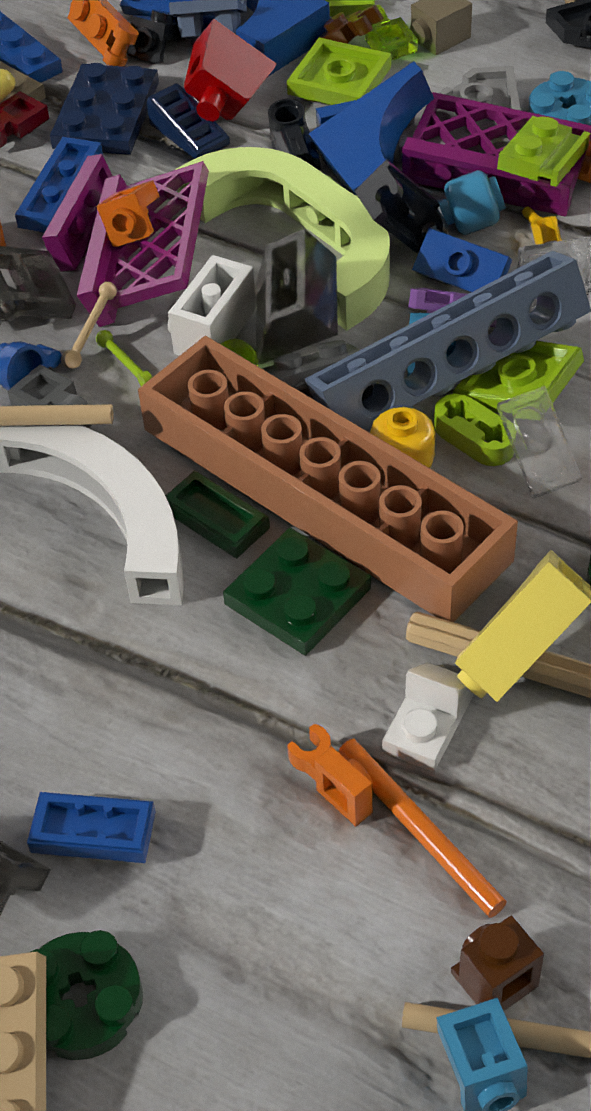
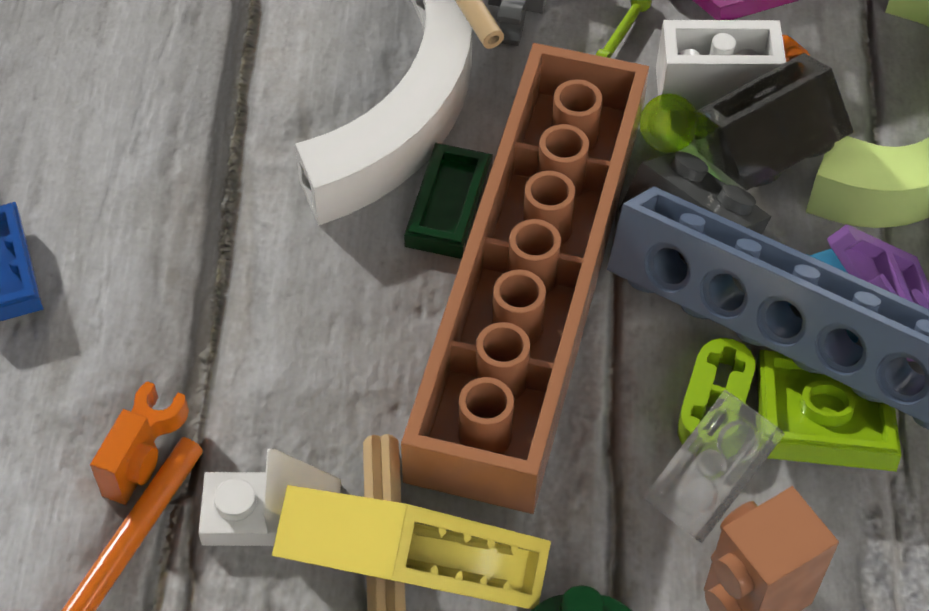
camera: 60 degrees right, 5 degrees up
(297, 591) = (378, 316): dark green plate -> none
(408, 432) = (629, 325): yellow head -> none

